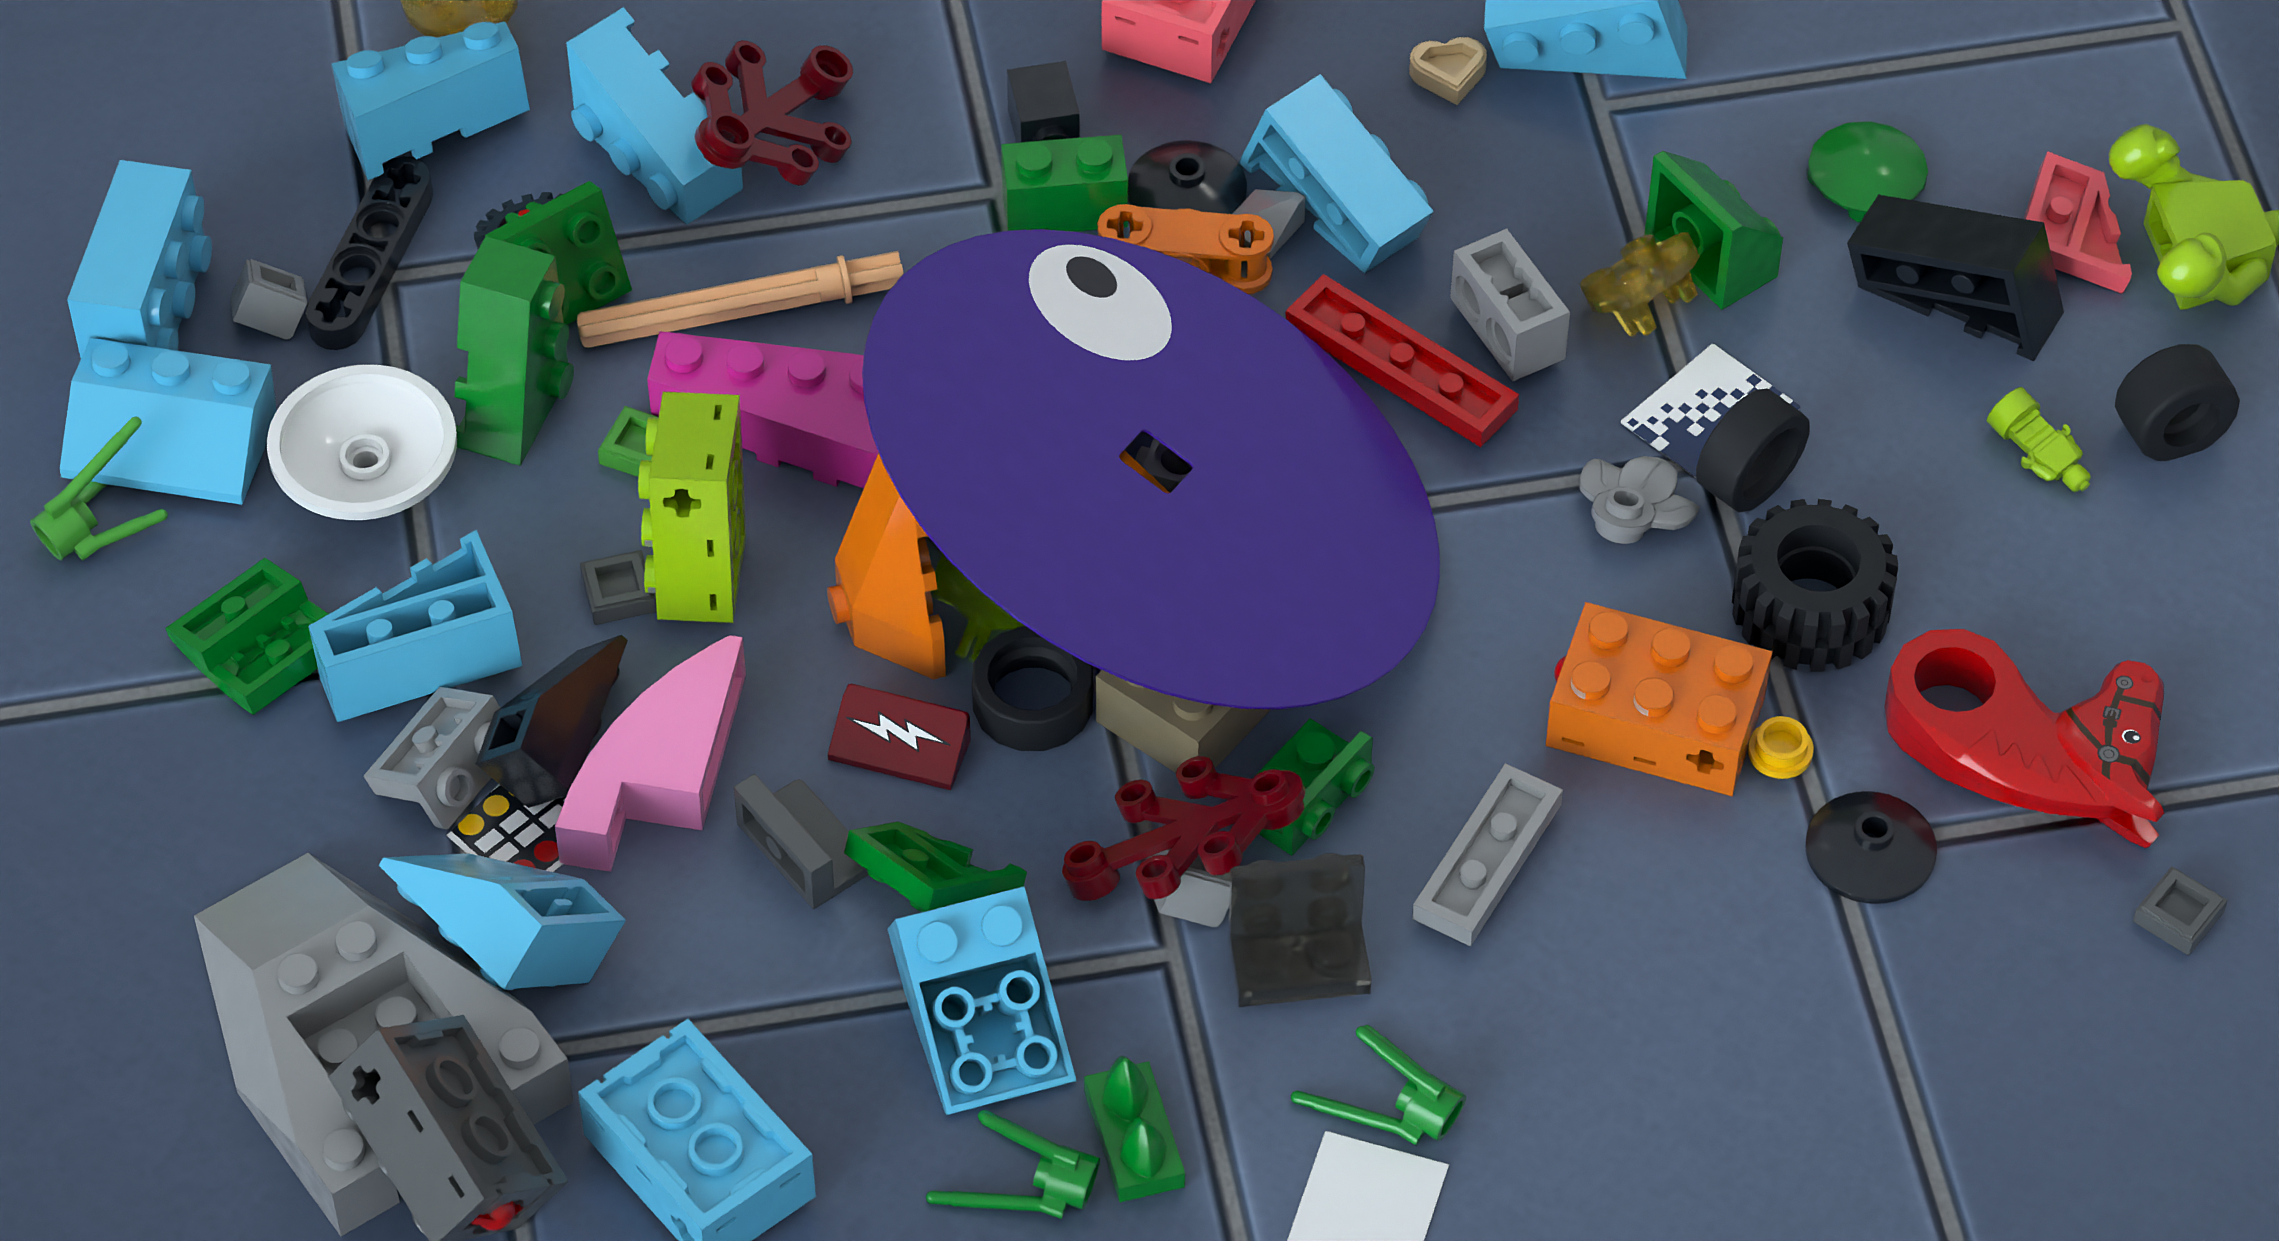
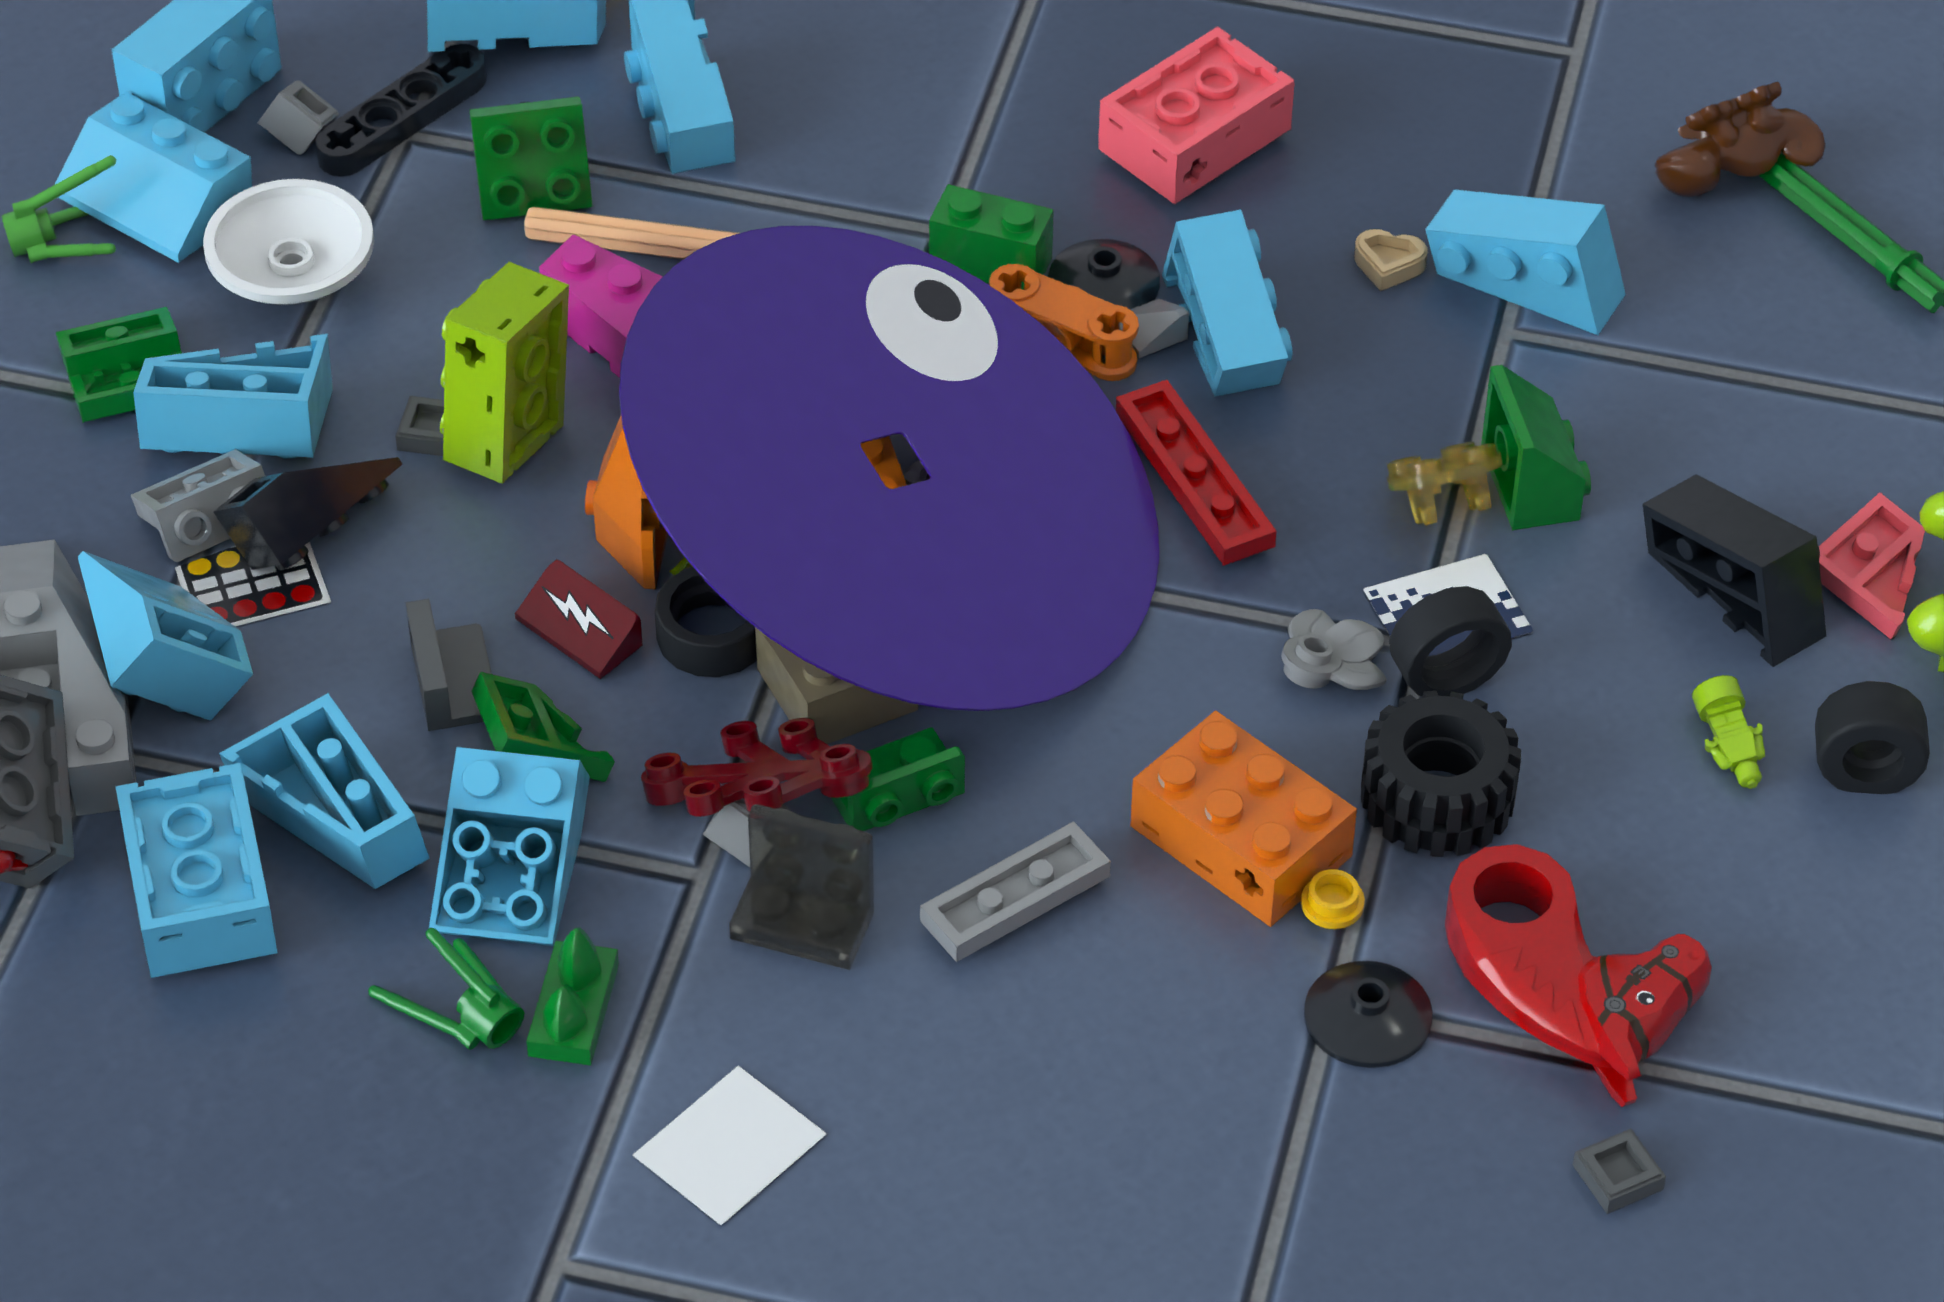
camera: 25 degrees right, 5 degrees down
(514, 347) = (444, 208): green wedge -> none
(655, 758) = (369, 562): bright pink slope -> none
(730, 138) = (723, 108): dark red plant -> none
(784, 1011) = (330, 792): none -> medium azure wedge
(1042, 103) = (1014, 167): black brick -> none
(1427, 1101) = (831, 1067): green plant -> none
(1509, 304) = (1310, 455): light grey brick -> none
(1866, 160) = (1717, 450): green dish -> none

